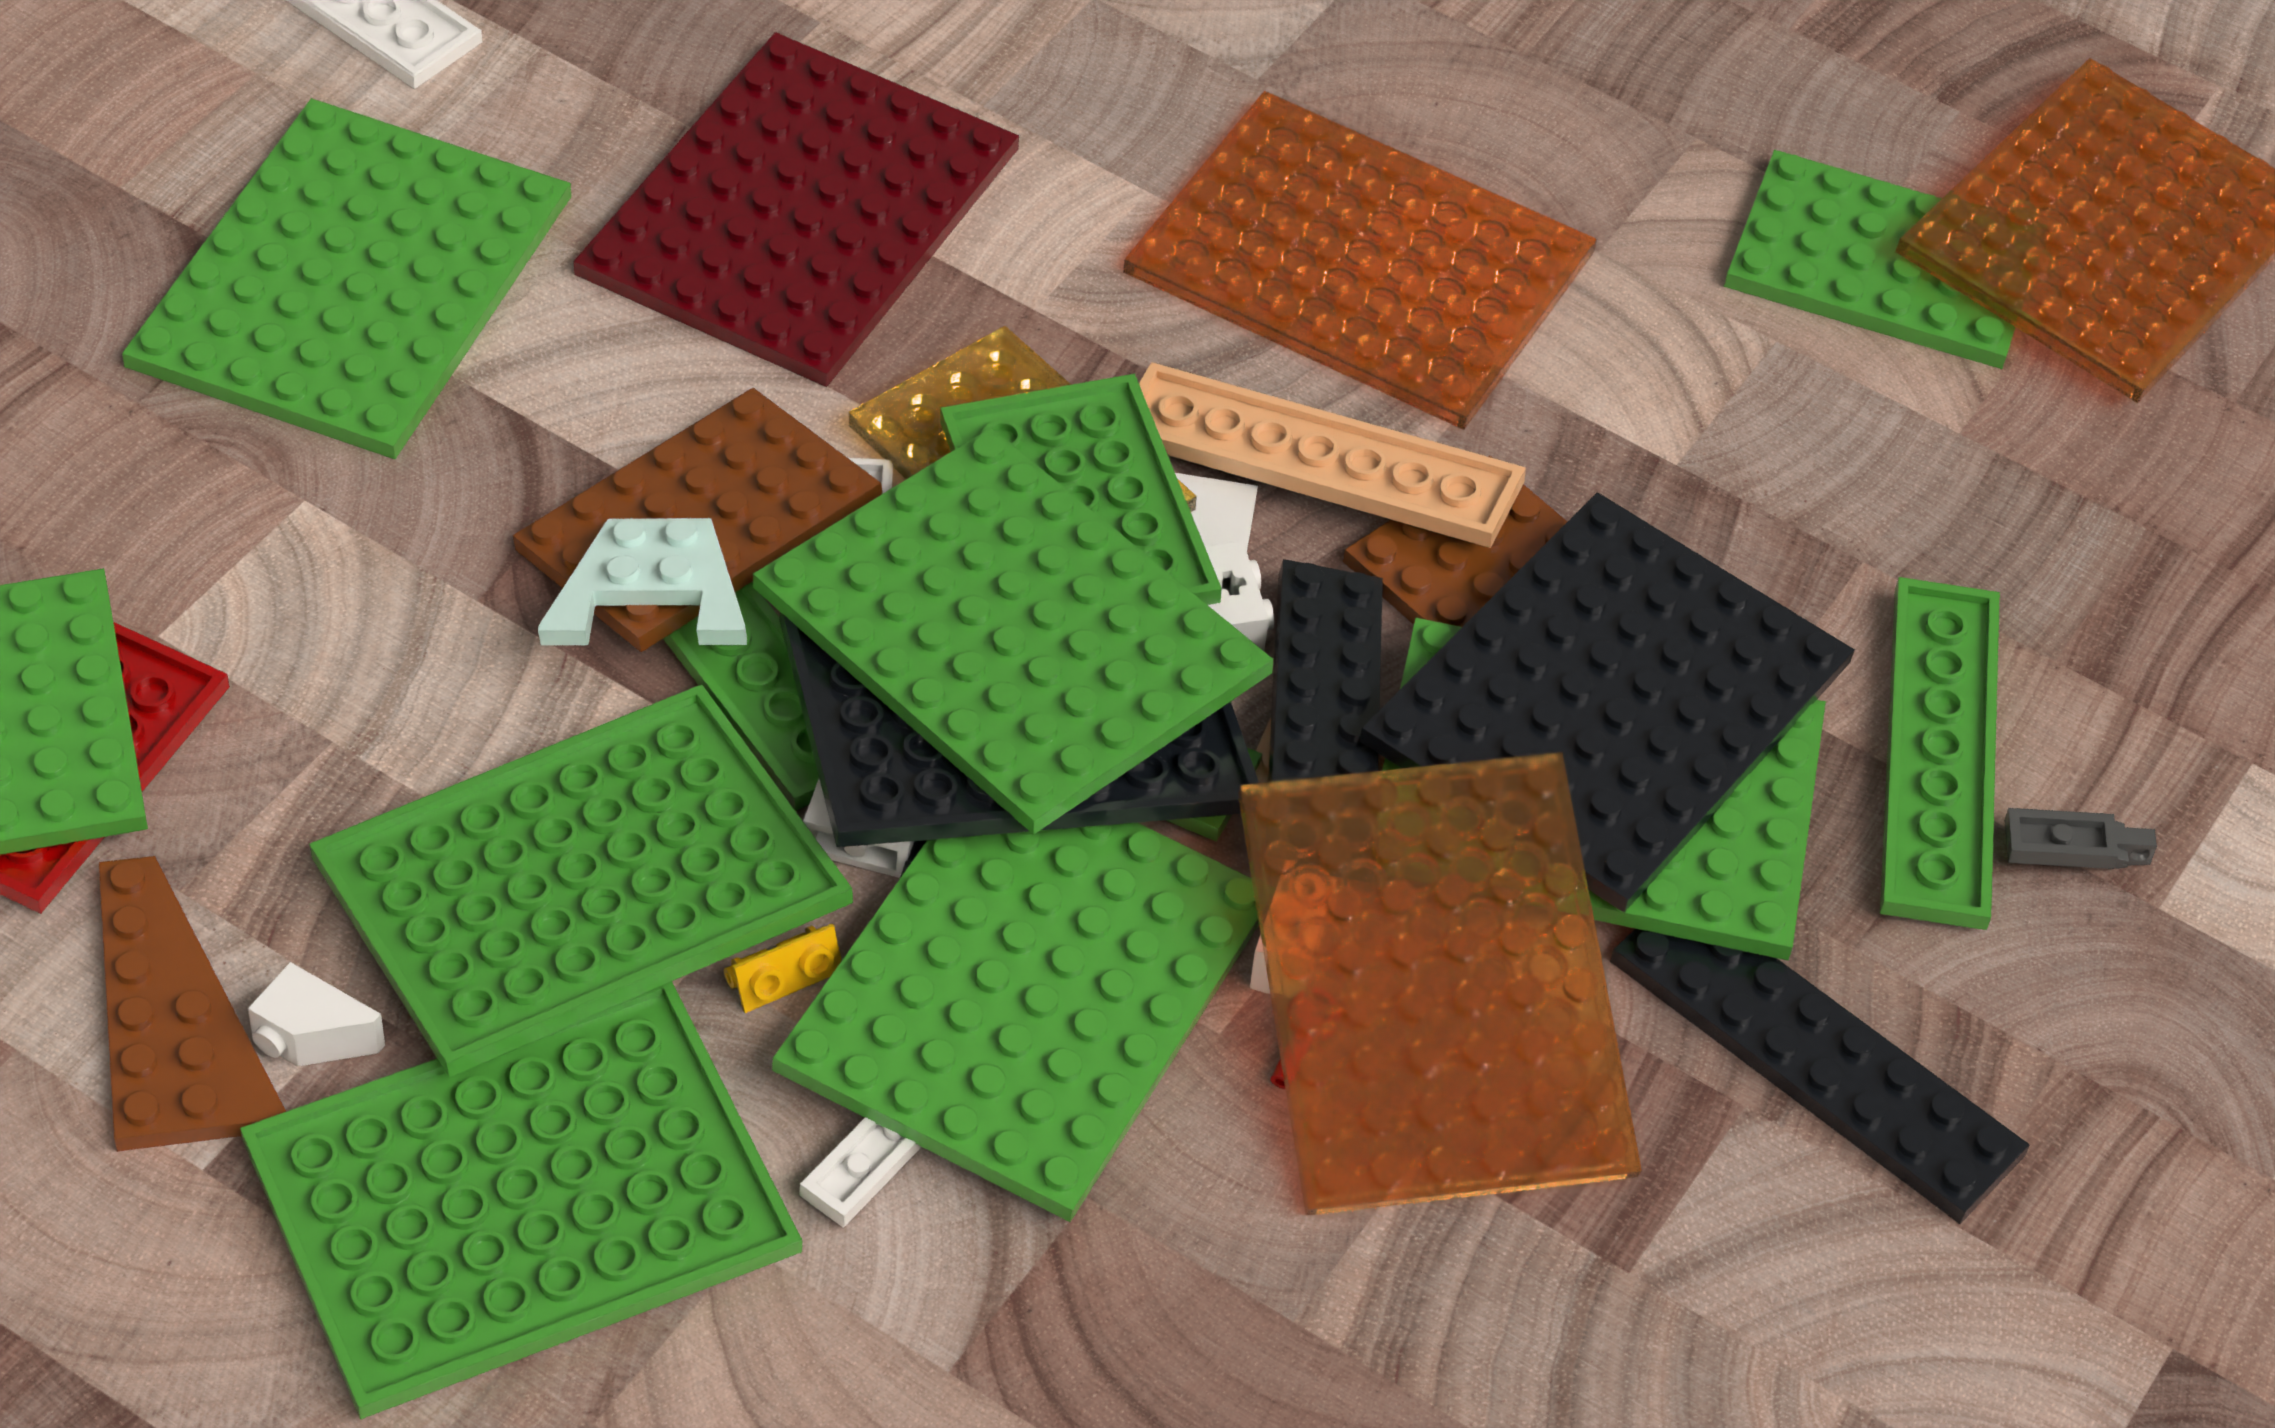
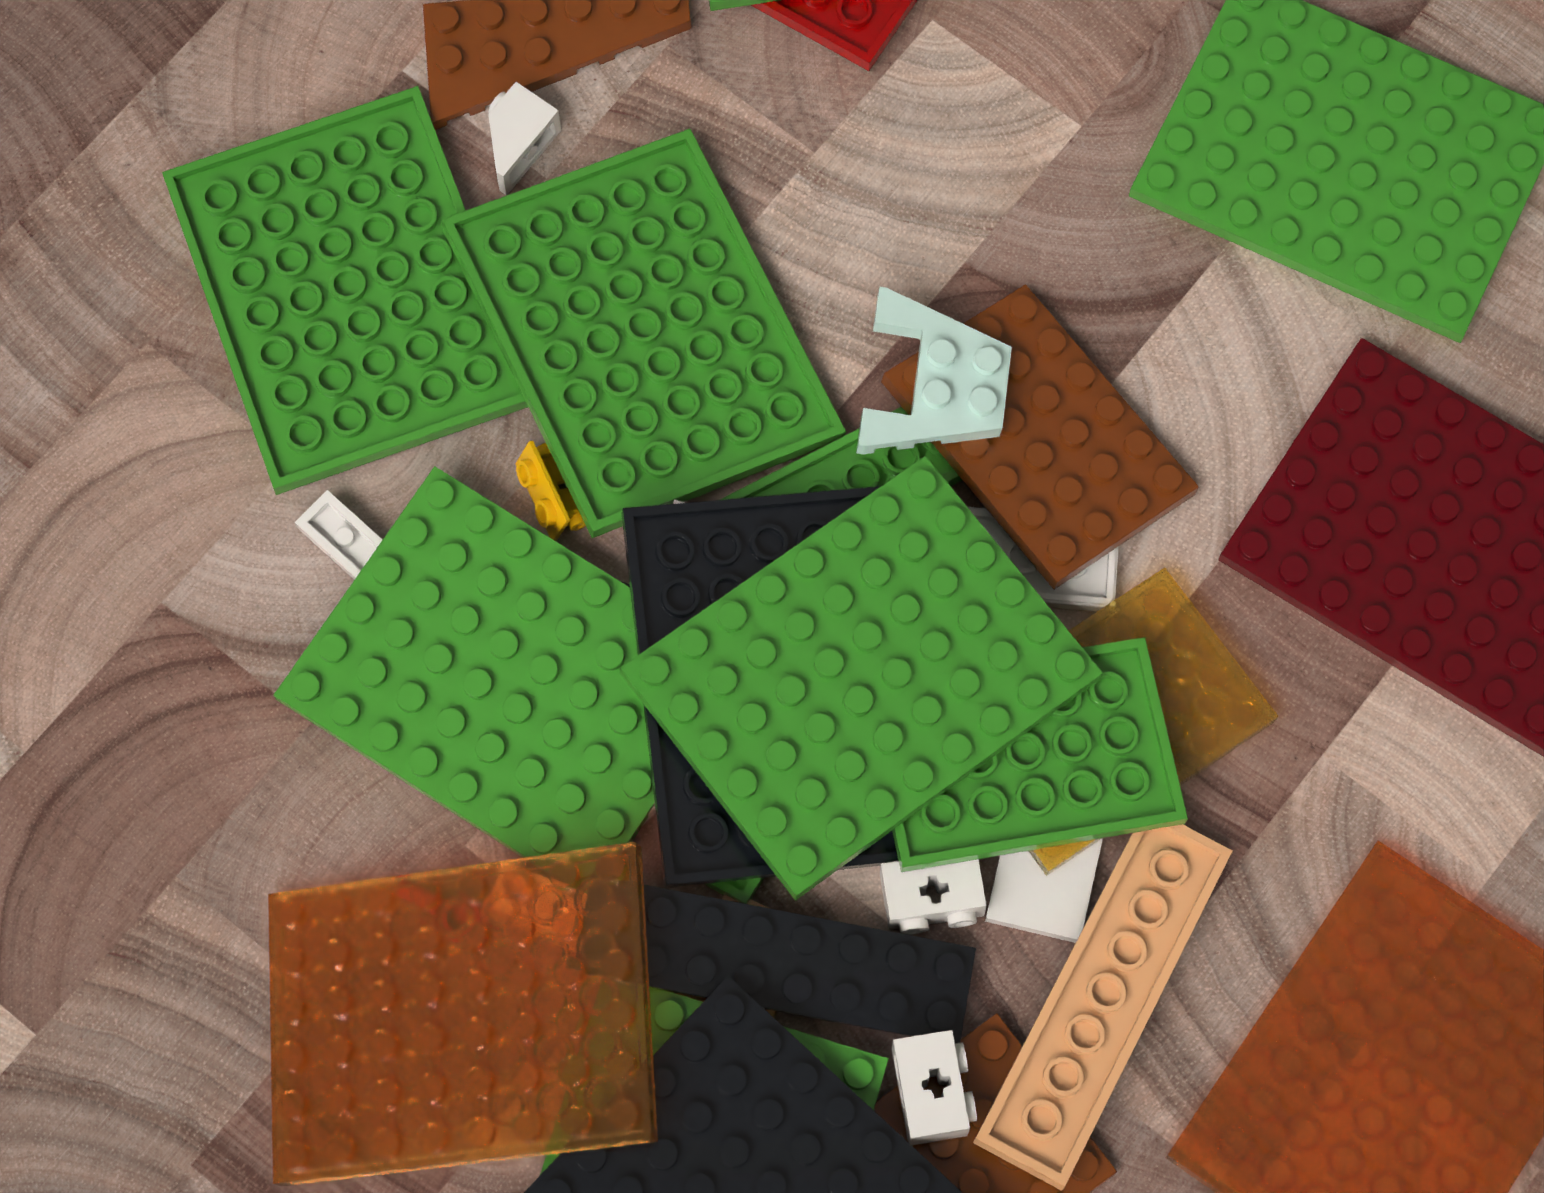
camera: 100 degrees right, 20 degrees up
(1441, 577) = (928, 1117): none -> white brick

